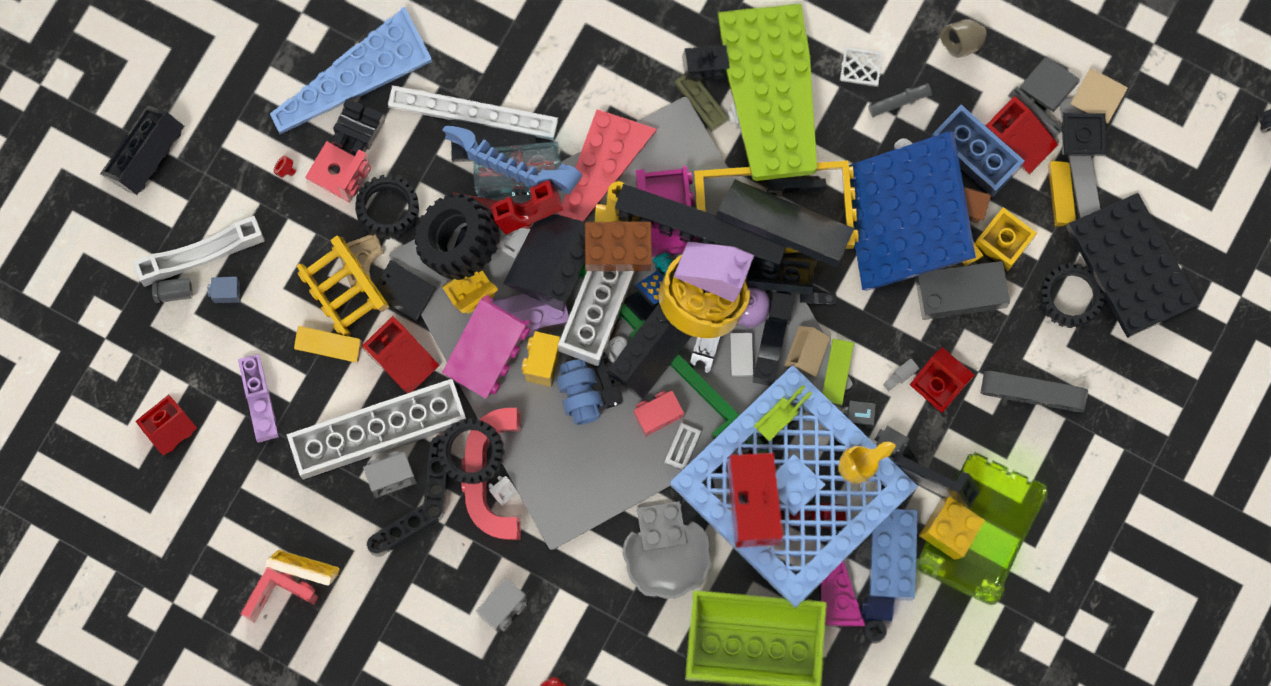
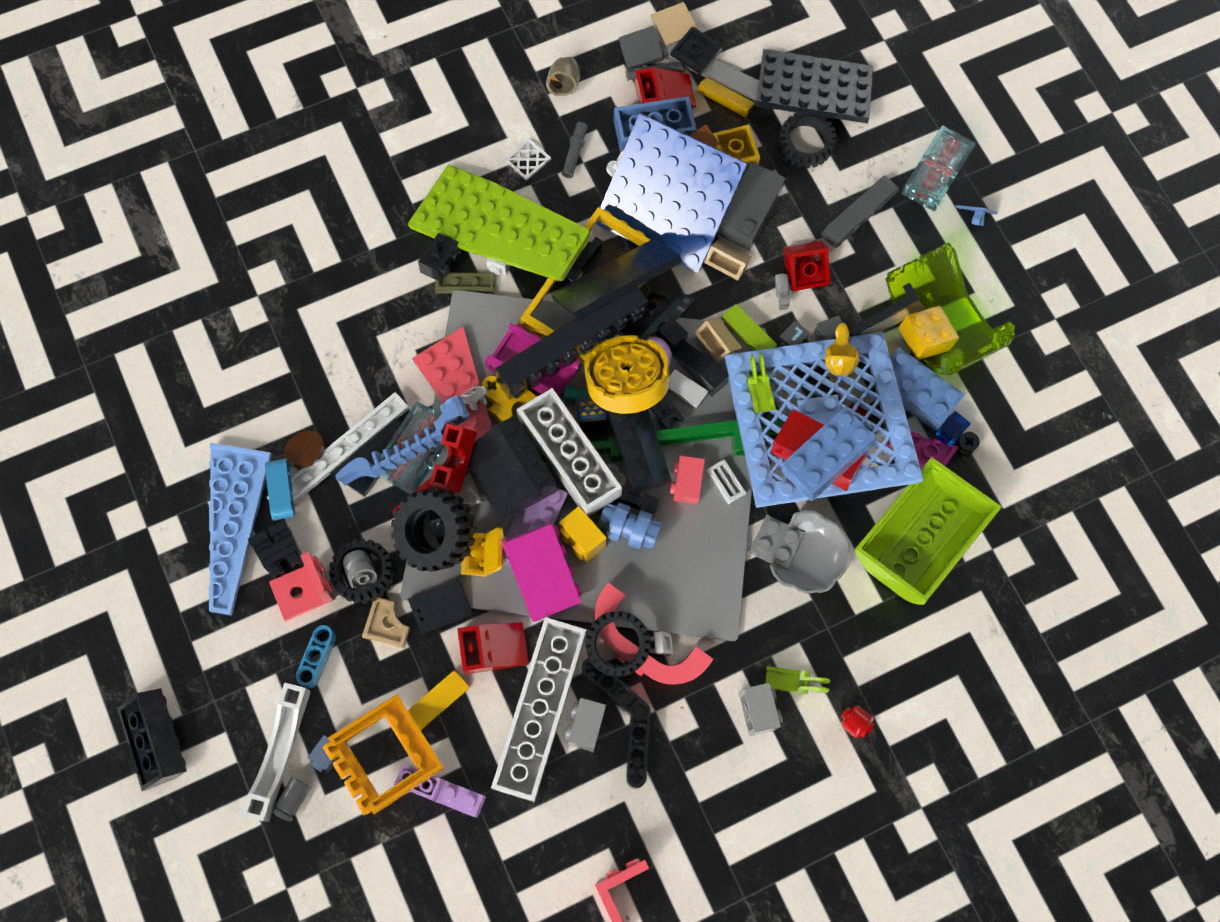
camera: 60 degrees left, 5 degrees down
(166, 425) = (402, 888): red slope -> none
(282, 222) = (315, 645): none -> dark azure beam
(282, 342) = (412, 741): none -> light orange hinge
(284, 167) = (262, 631): red tile -> none
(302, 567) = (612, 854): yellow tile -> none
(362, 284) = (389, 635): yellow fence -> none
(385, 204) = (359, 570): none -> light grey wheel
(405, 91) = (280, 489): none -> dark azure beam
(454, 83) = (304, 449): none -> reddish brown tile
(549, 618) = (794, 680): none -> lime arm
(598, 183) = (473, 395): none -> white tile
(618, 246) = (542, 407): dark orange brick -> none
(714, 268) = (616, 348): lavender slope -> none
(745, 505) = (828, 454): none -> medium blue brick
(895, 306) = (727, 259): none -> tan brick
(1116, 498) = (978, 218): none -> medium blue piece
(1132, 432) = (938, 168): none -> brick

